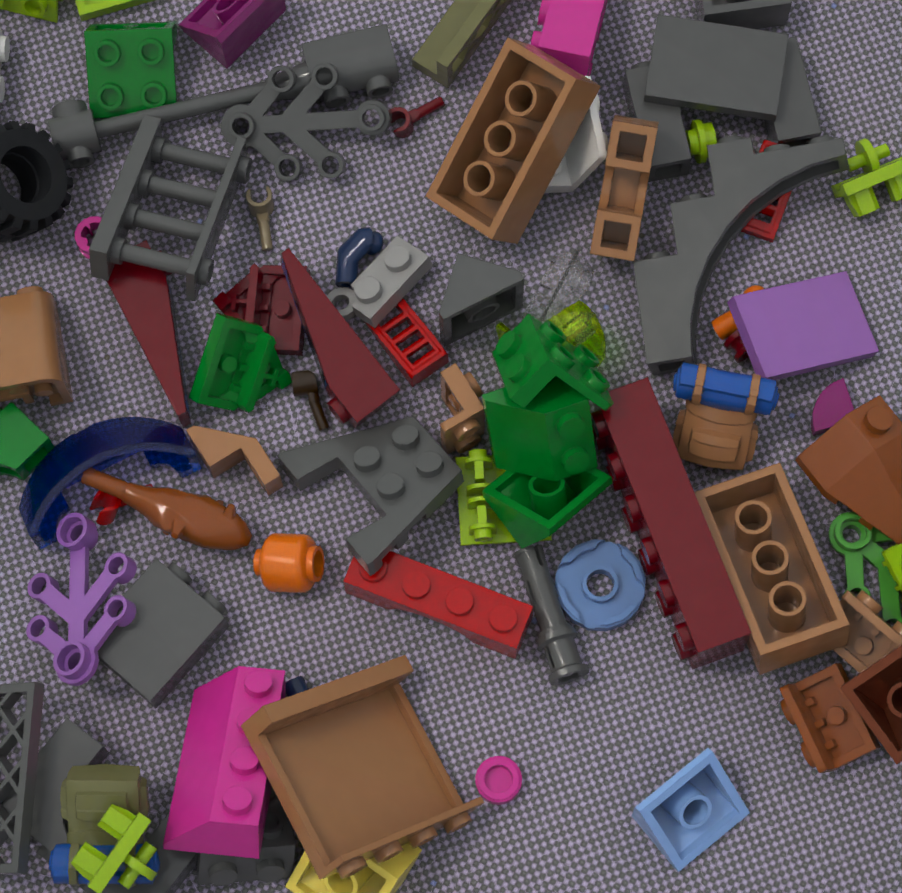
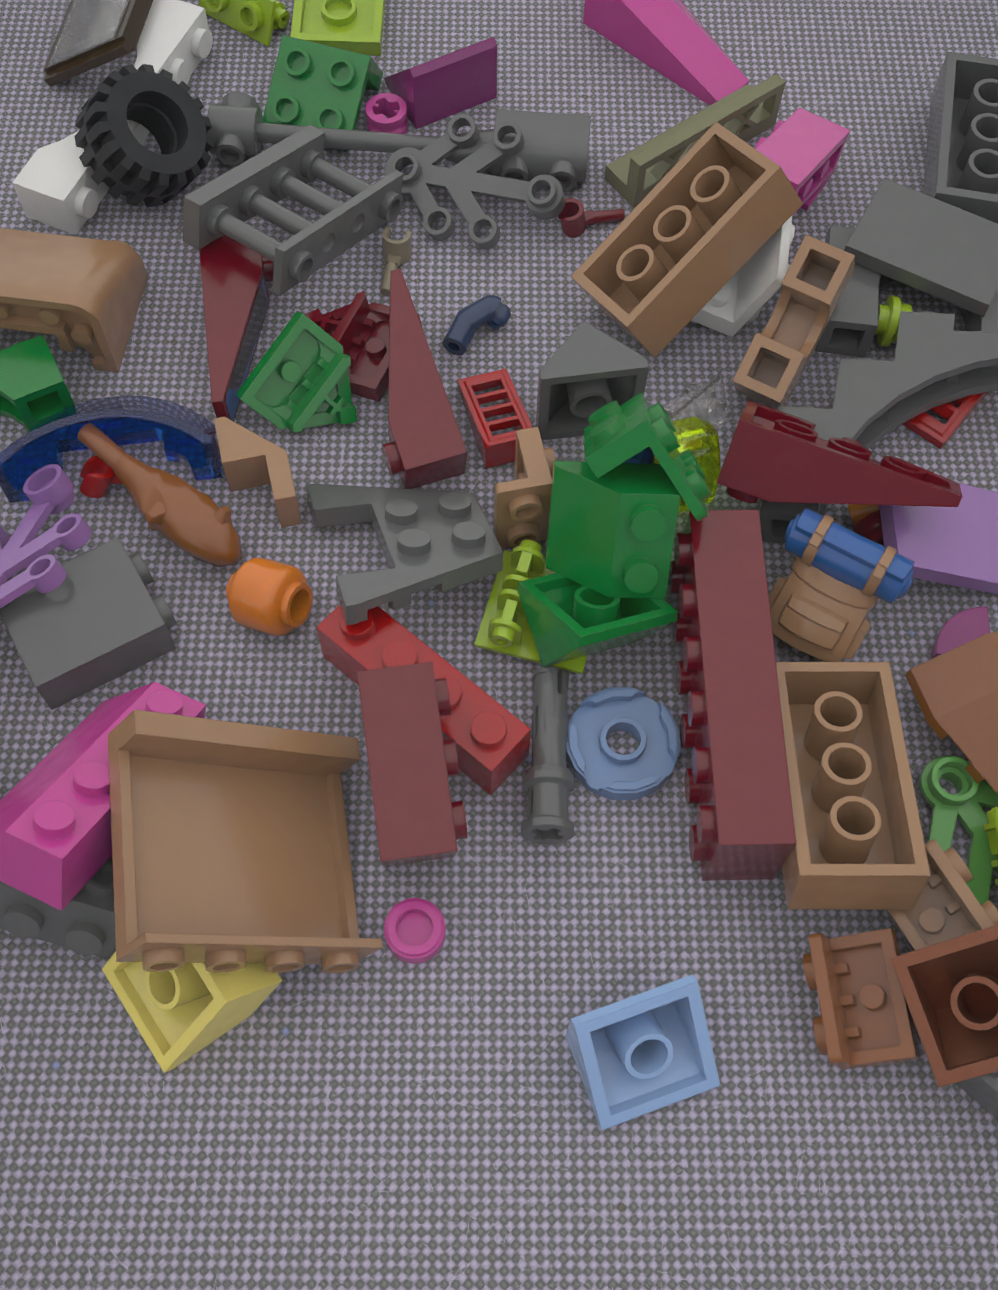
camera: 15 degrees right, 10 degrees down
(200, 57) = (387, 105): none -> dark pink bush
(305, 384) = (368, 425): dark brown hand -> none
(383, 282) = (494, 353): light grey hinge -> none
(459, 668) = (410, 764): none -> dark red wedge
(667, 320) = (786, 461): none -> dark red wedge

